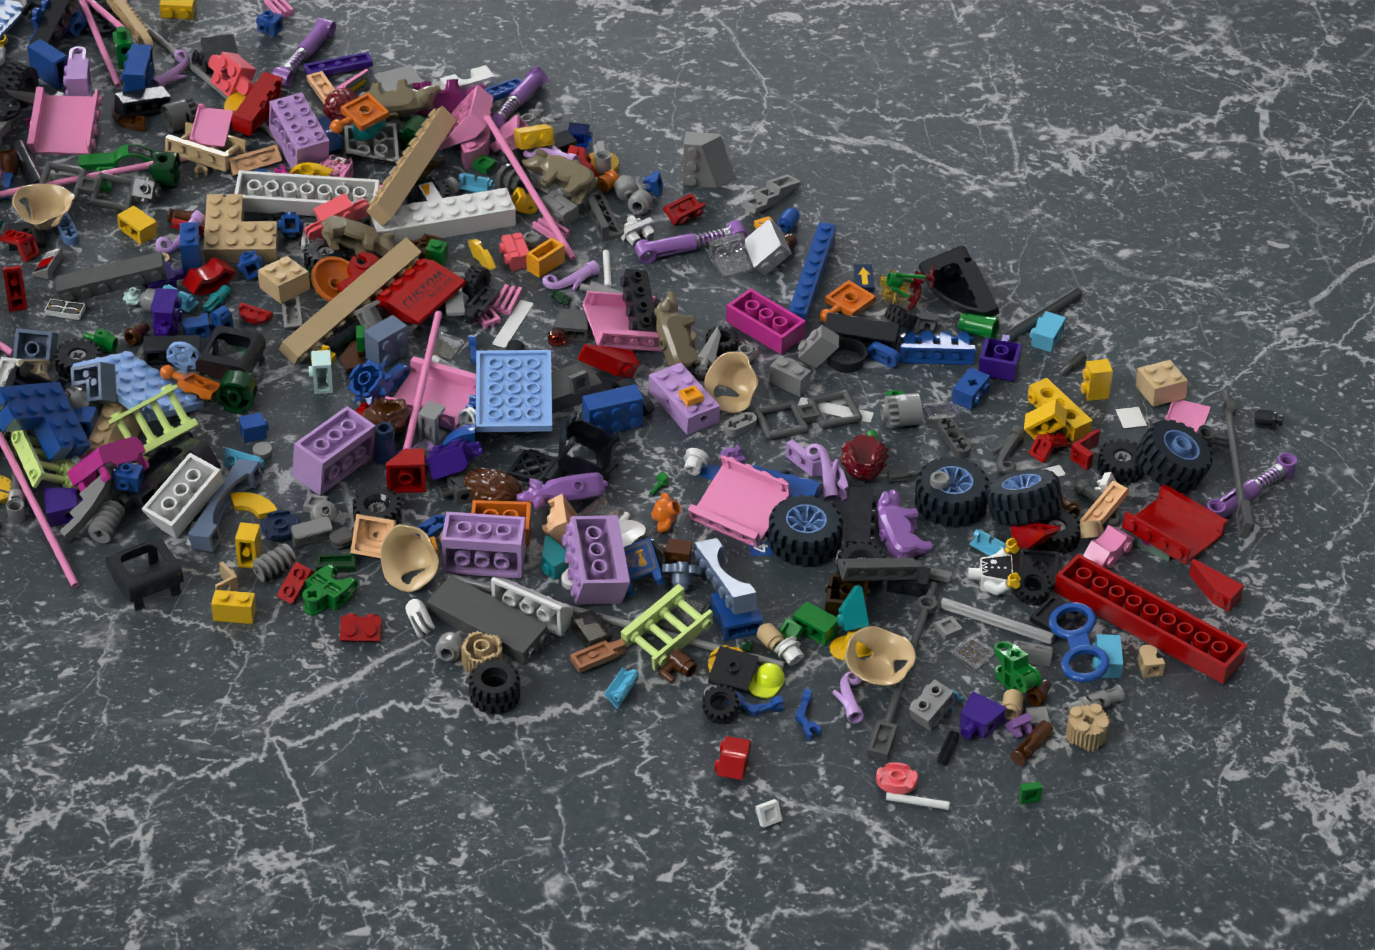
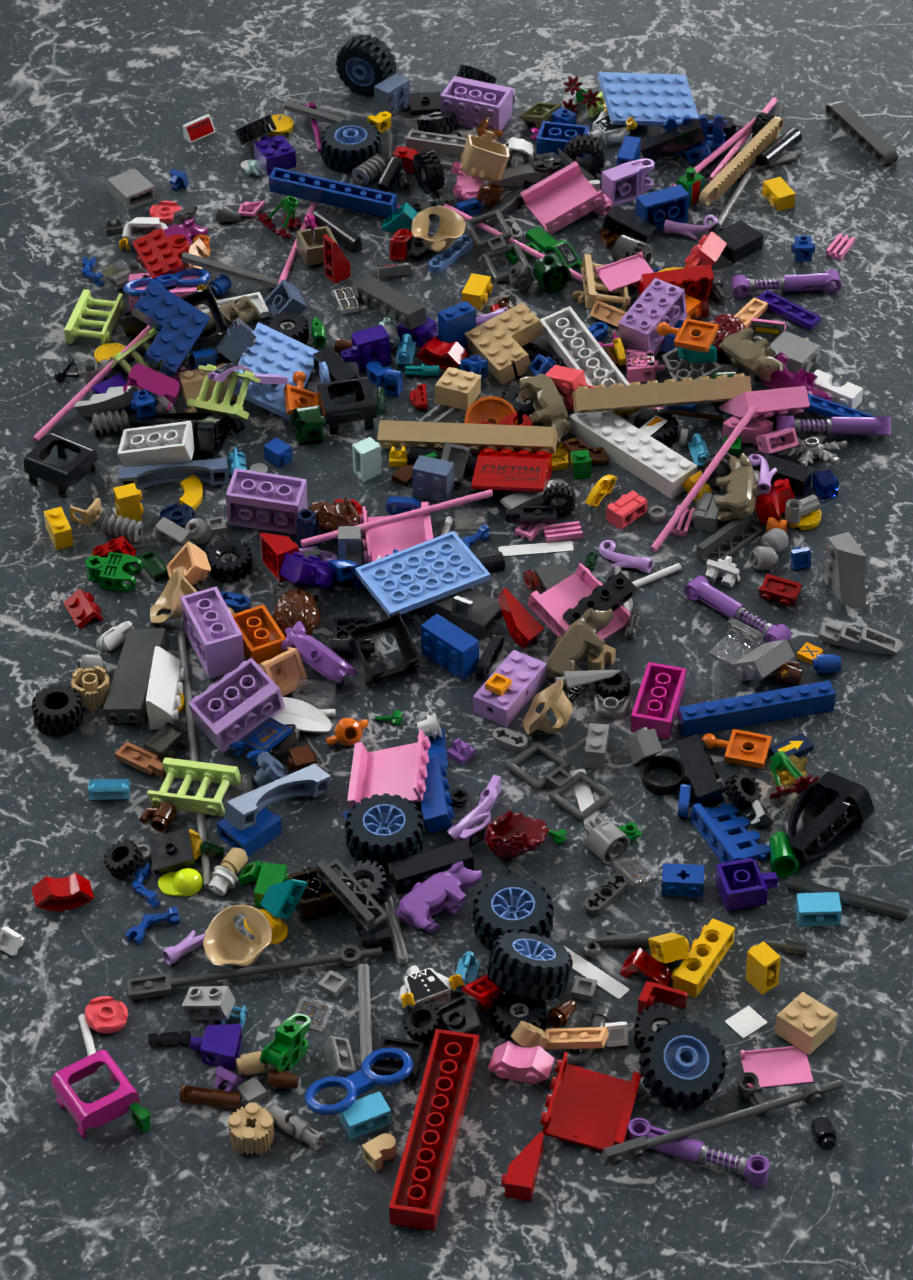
camera: 65 degrees right, 0 degrees up
(150, 397) = (221, 373): none -> lavender piece
(370, 382) = (373, 490): blue brick -> none
(533, 136) = (769, 449): yellow brick -> none
(545, 257) = (622, 530): light orange brick -> none
(939, 480) = (501, 892): light grey tile -> none
(995, 823) = (102, 1110): none -> dark pink piece

